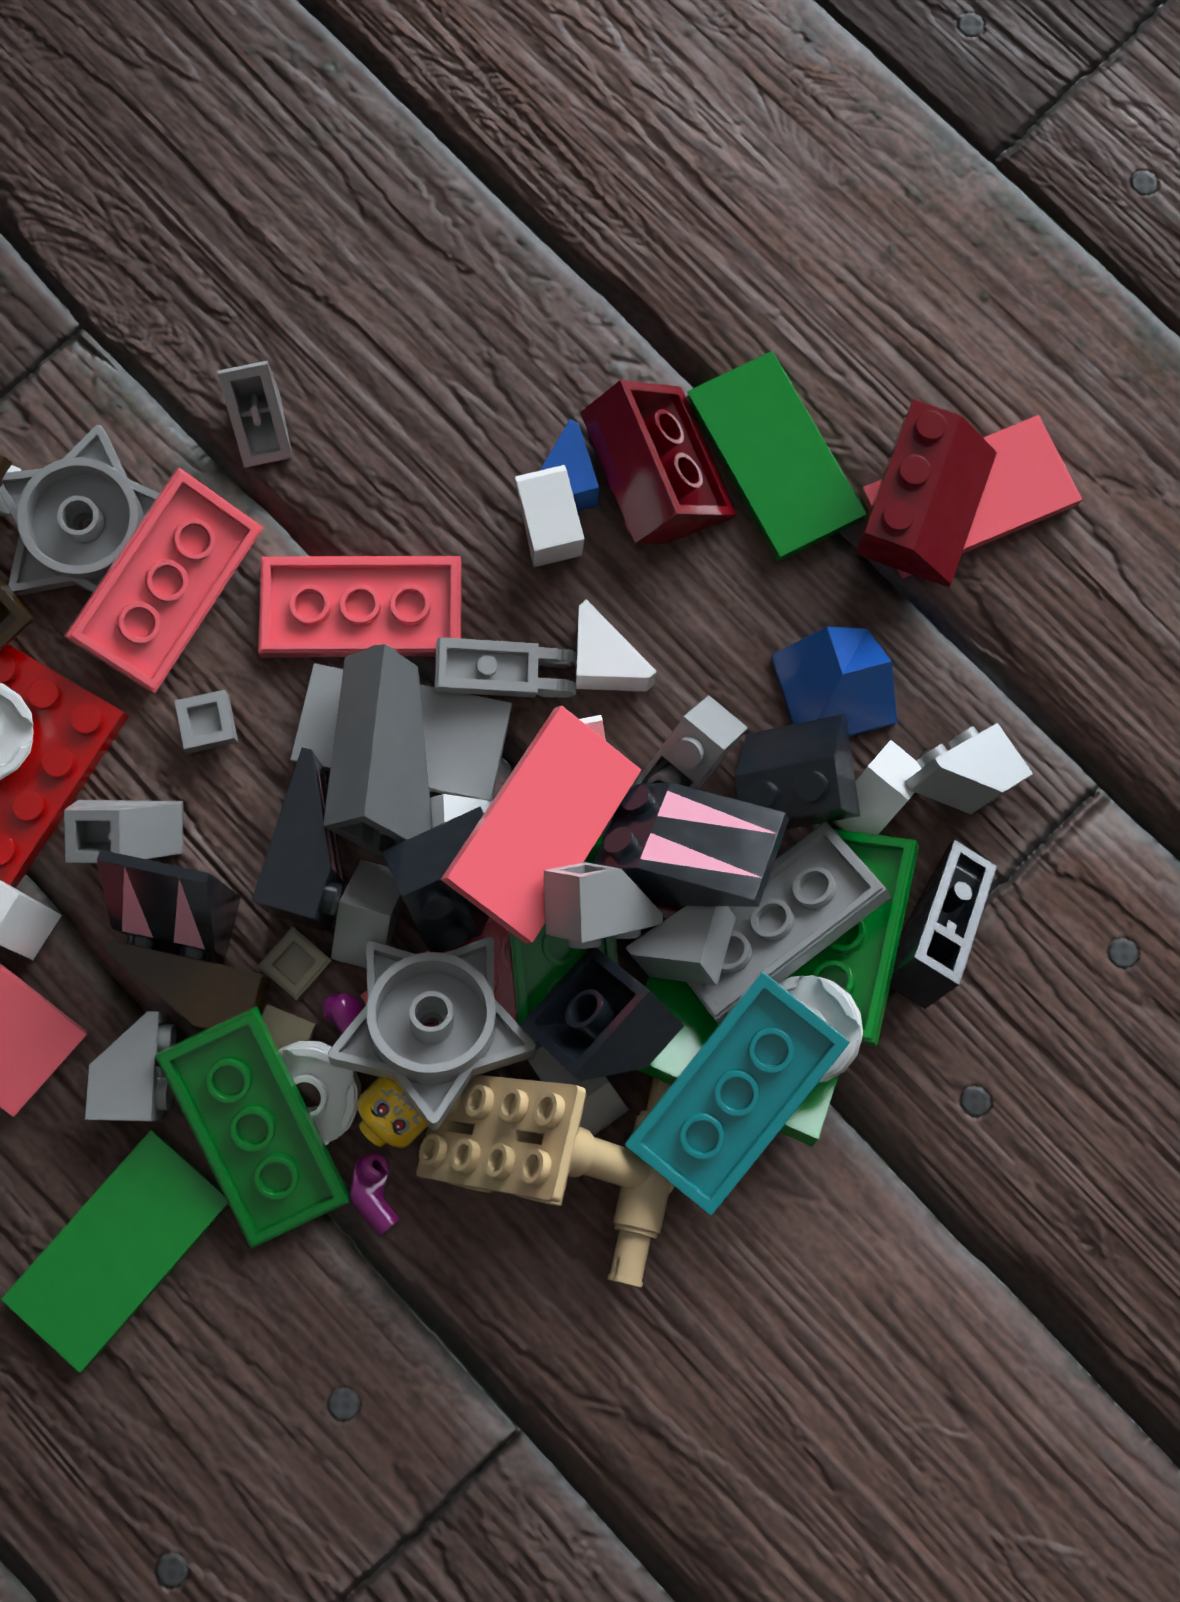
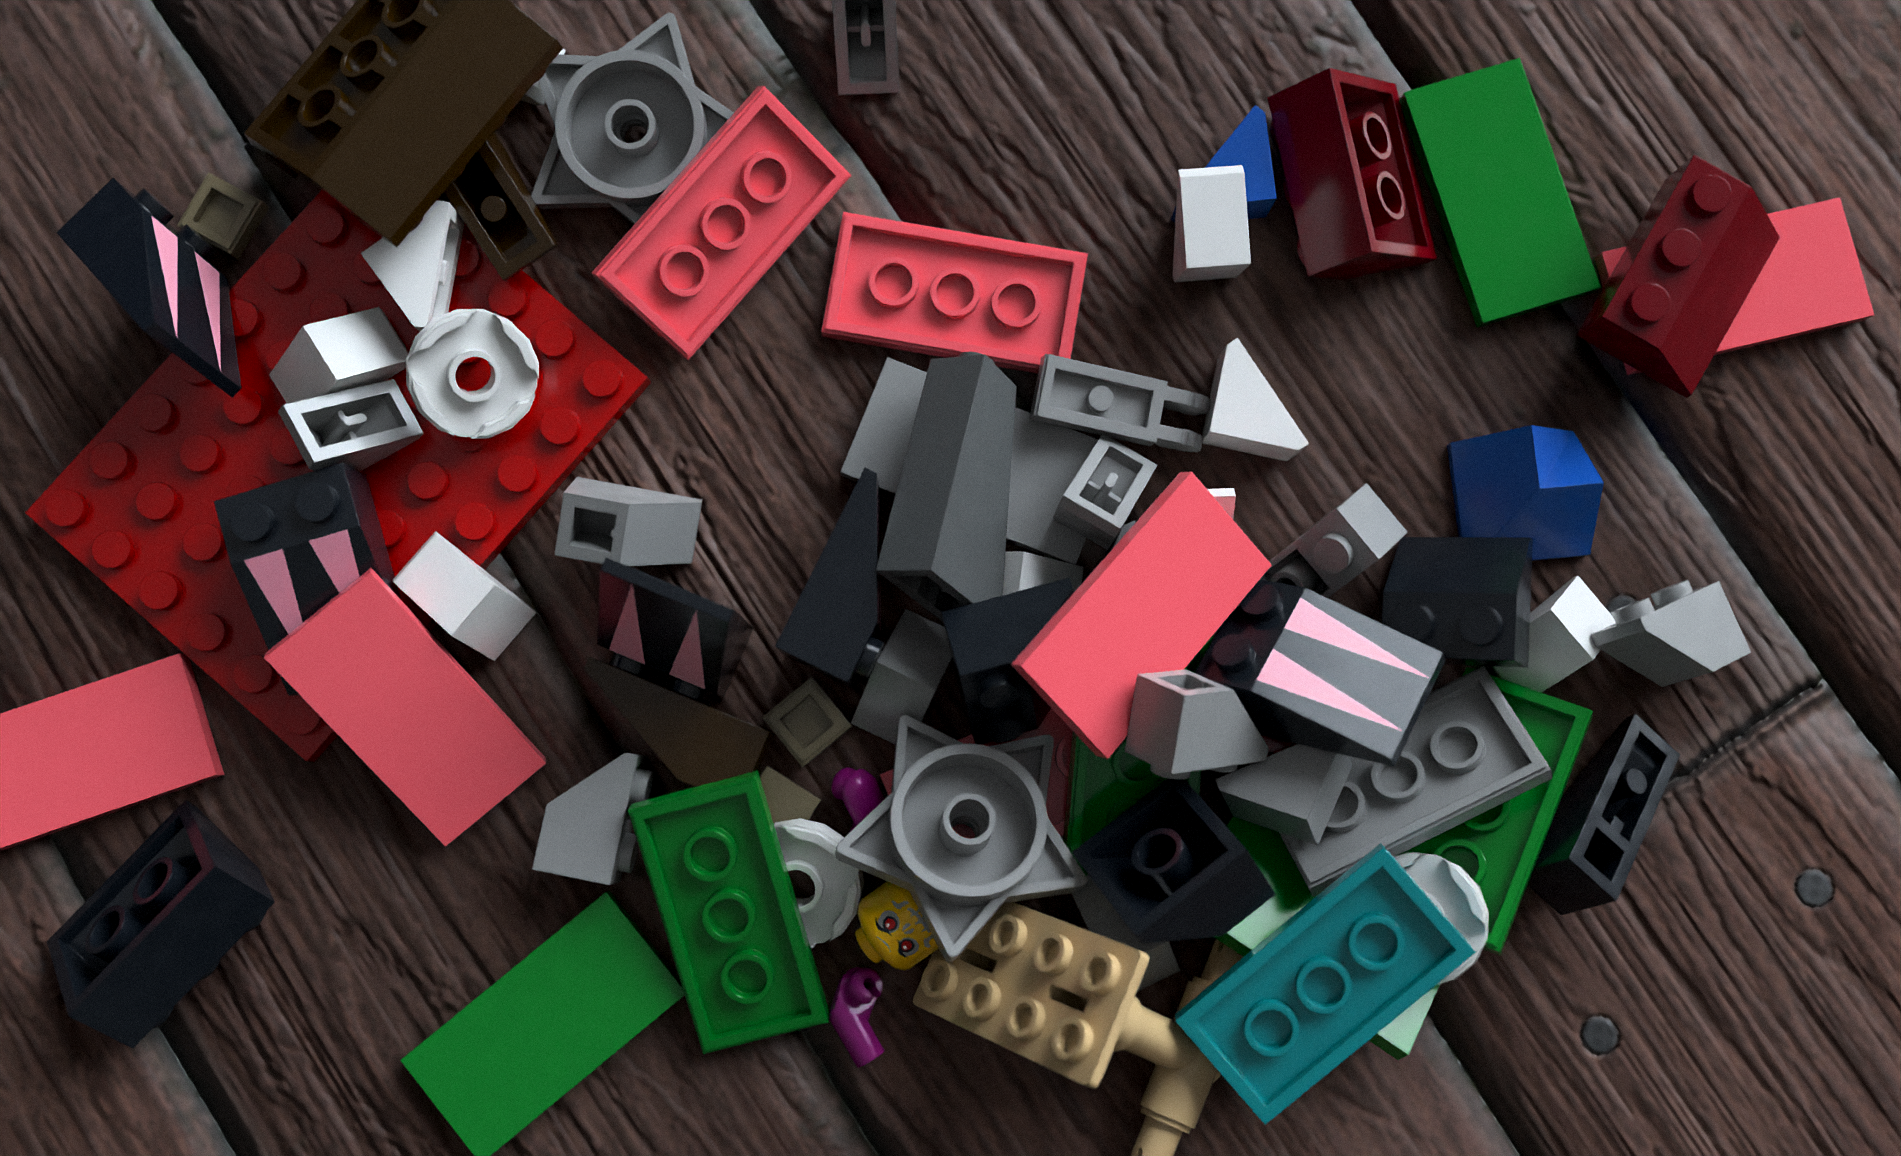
camera: 10 degrees right, 5 degrees up
(206, 721) = (745, 406): light grey plate -> none
(500, 736) = (1104, 491): none -> light grey slope

